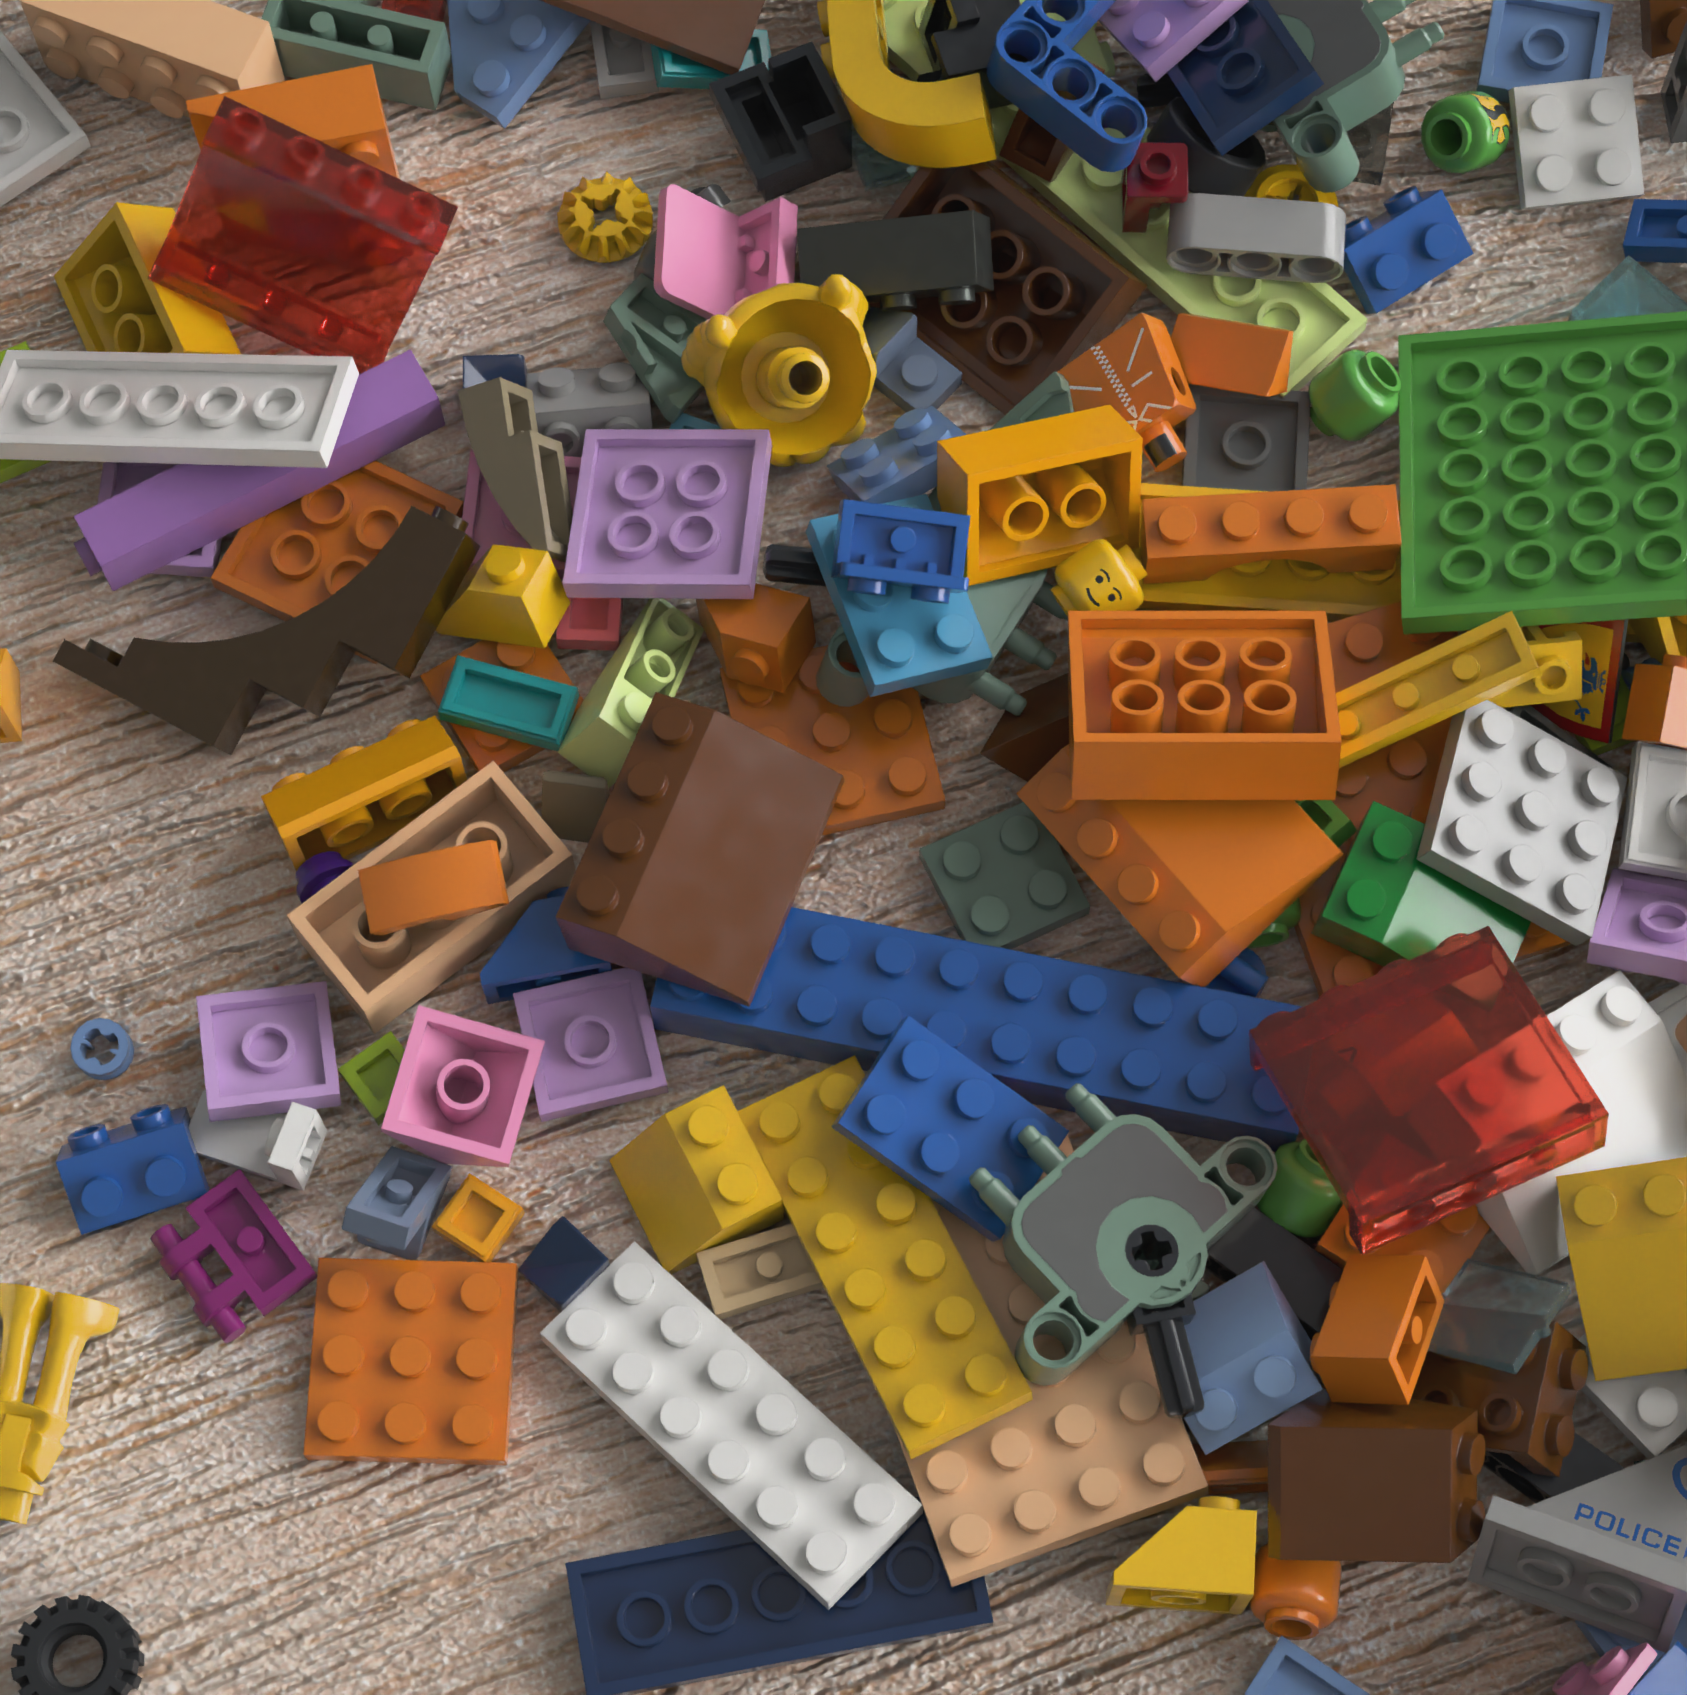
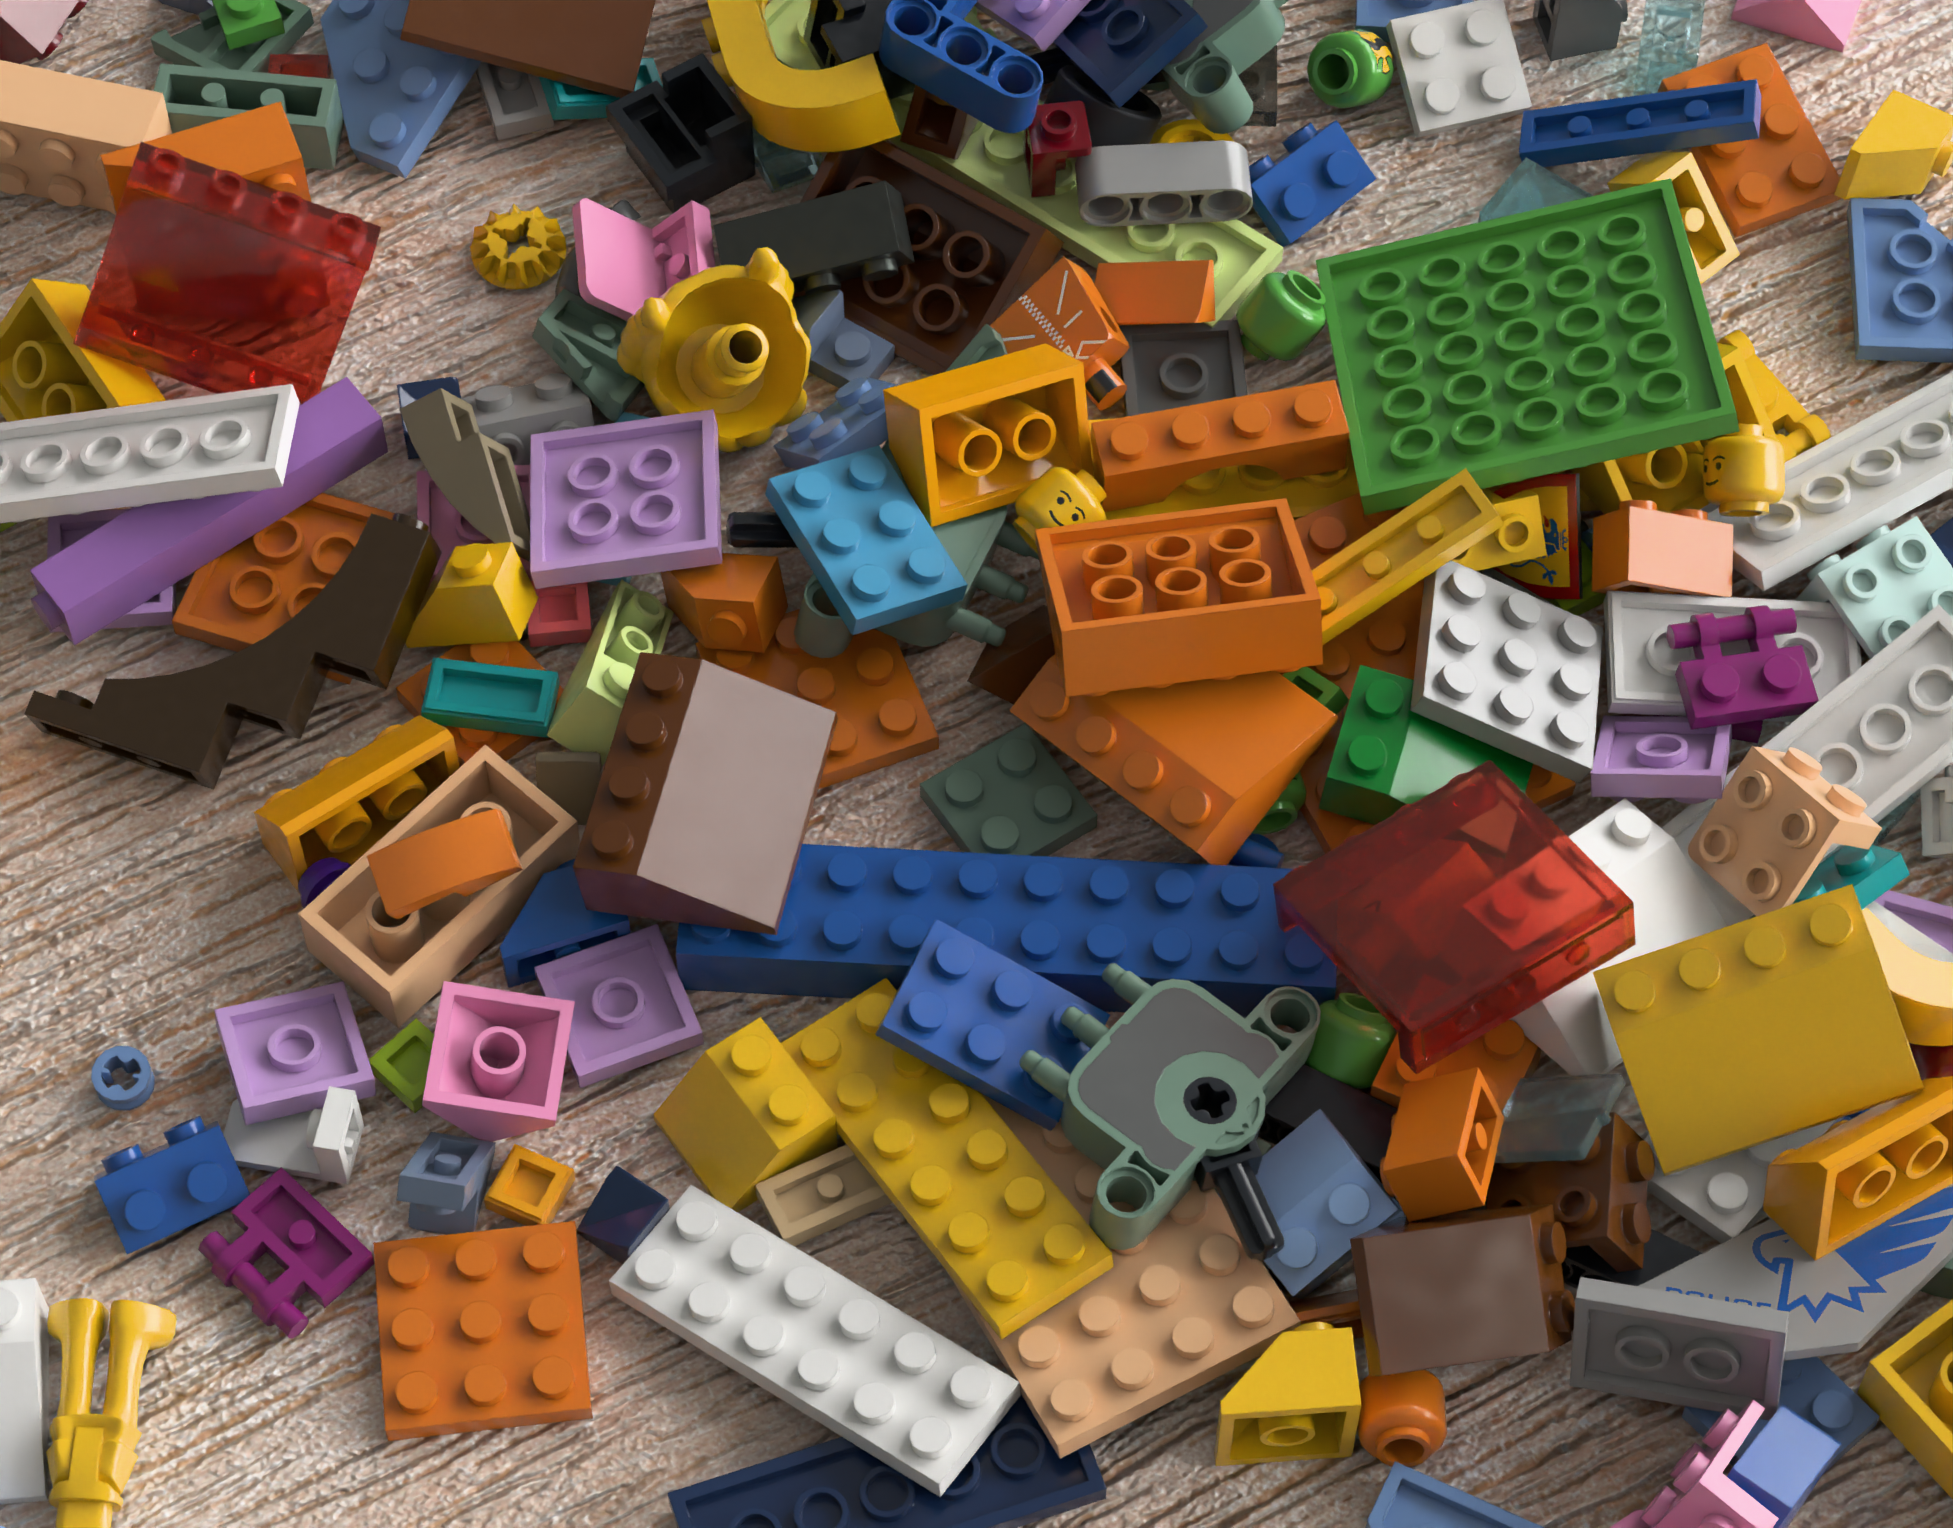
camera: 10 degrees left, 10 degrees down
(900, 548) = (863, 489): blue bracket -> none

